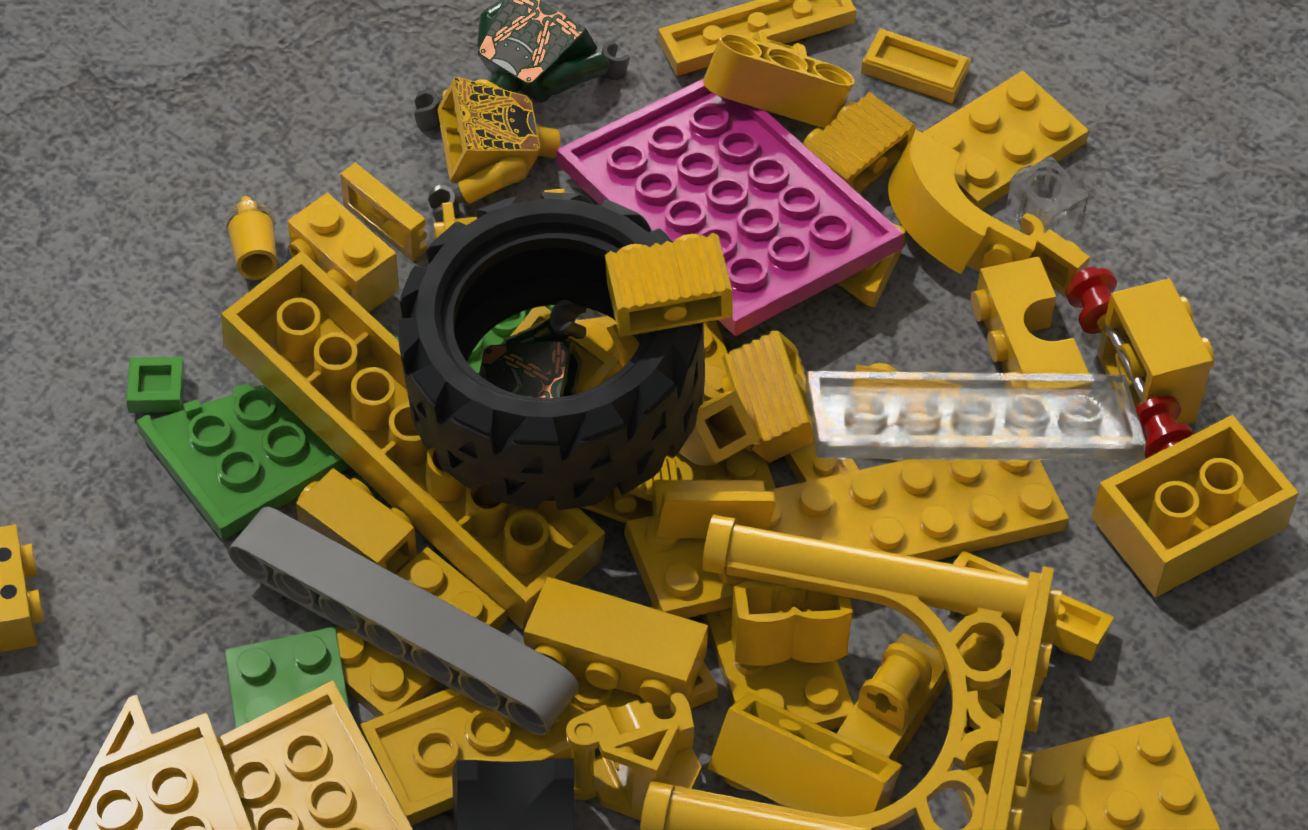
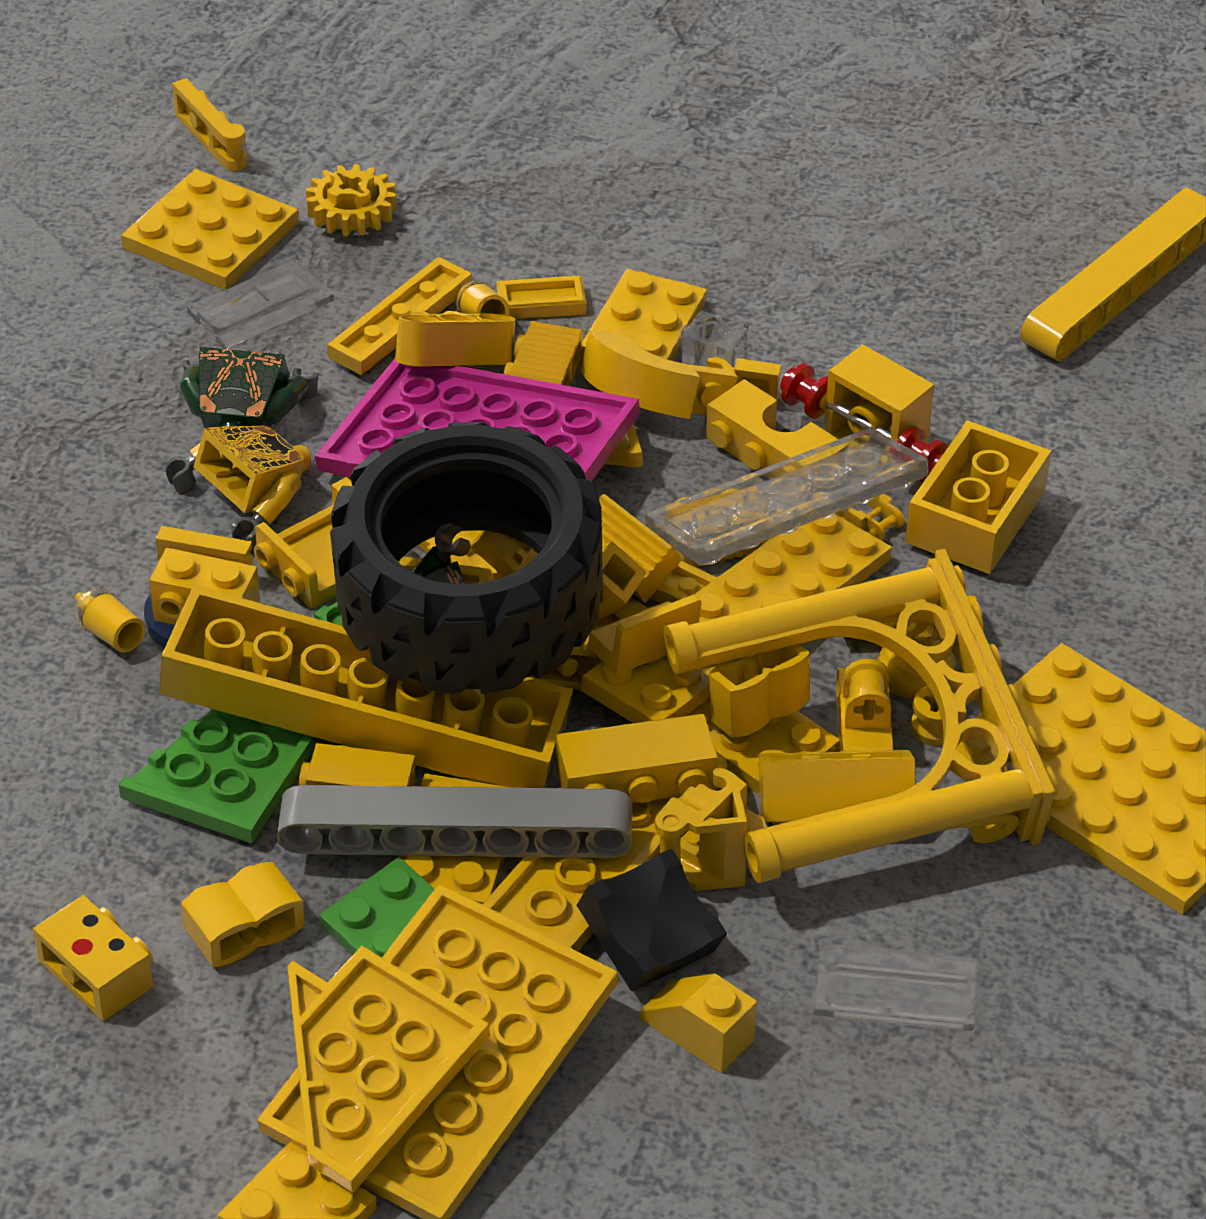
camera: 30 degrees left, 10 degrees down
(154, 613) = (242, 914): none -> yellow brick
(155, 384) = (110, 755): bright green plate -> none
(668, 284) = (556, 450): yellow brick -> none
(843, 45) = (480, 298): none -> yellow piece
(1061, 478) = (883, 508): none -> yellow piece

